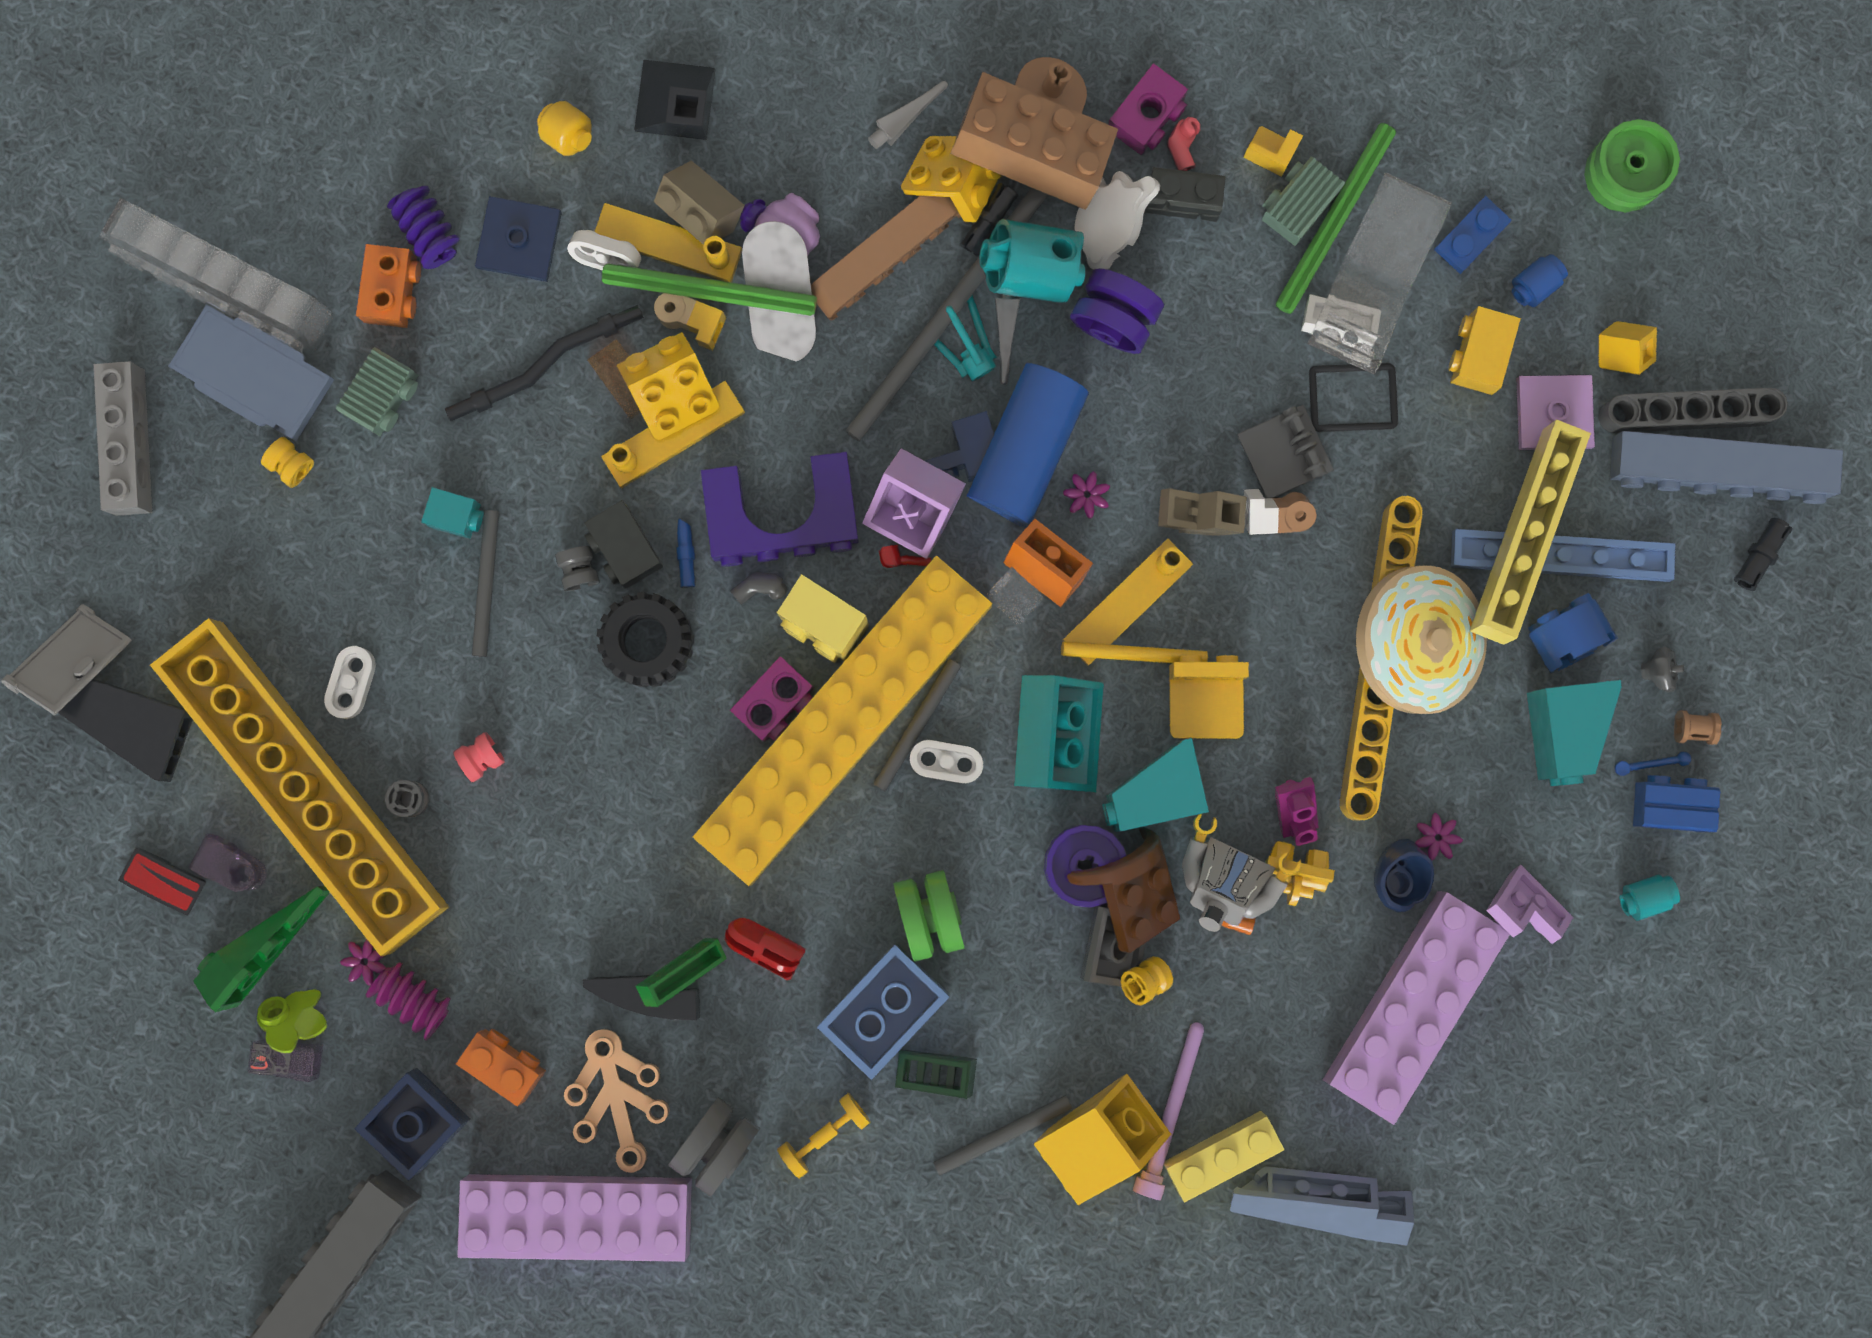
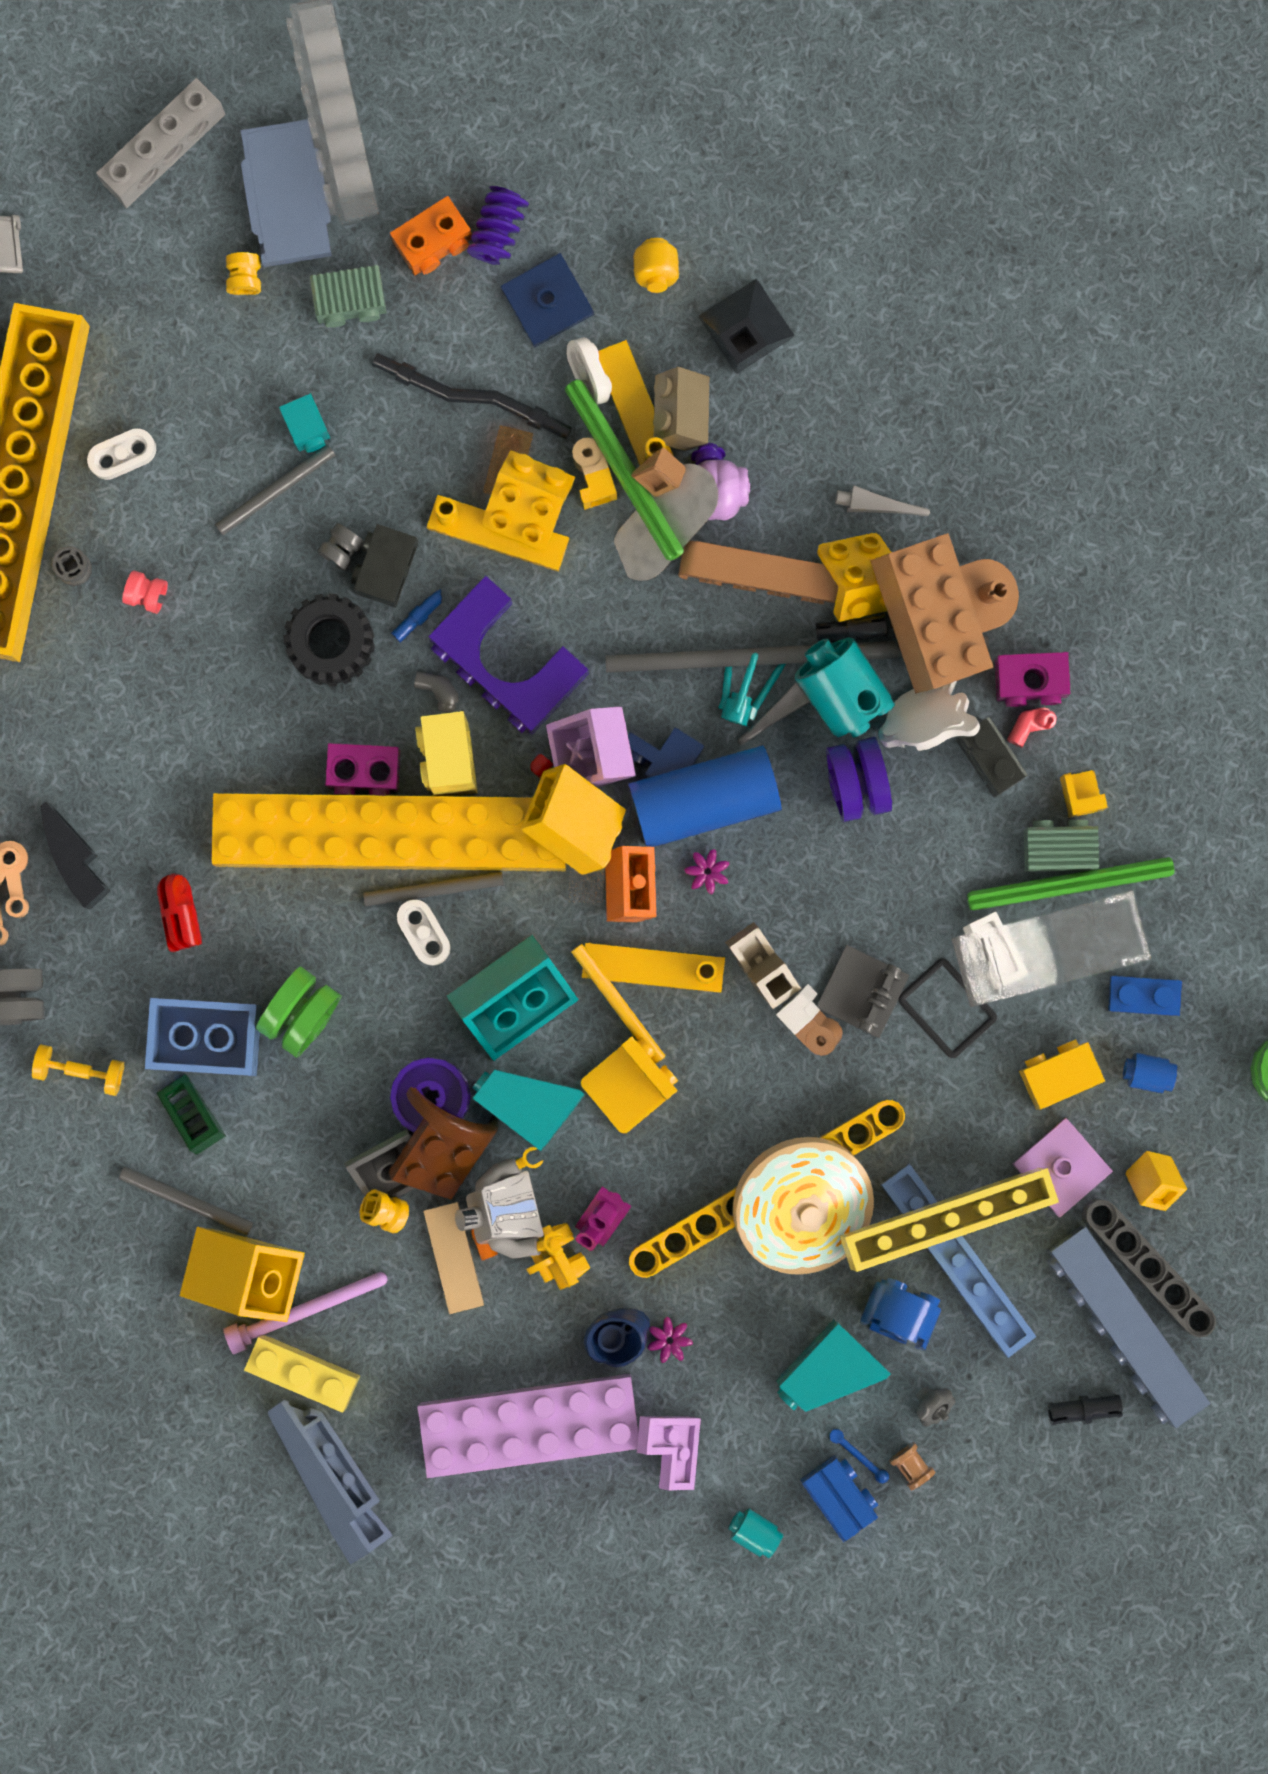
camera: 50 degrees right, 0 degrees up
(681, 972) = (109, 867): green piece -> none
(737, 261) = (660, 473): none -> medium nougat slope
(961, 562) = (573, 819): none -> yellow brick
(1229, 956) = (453, 1259): none -> tan tile

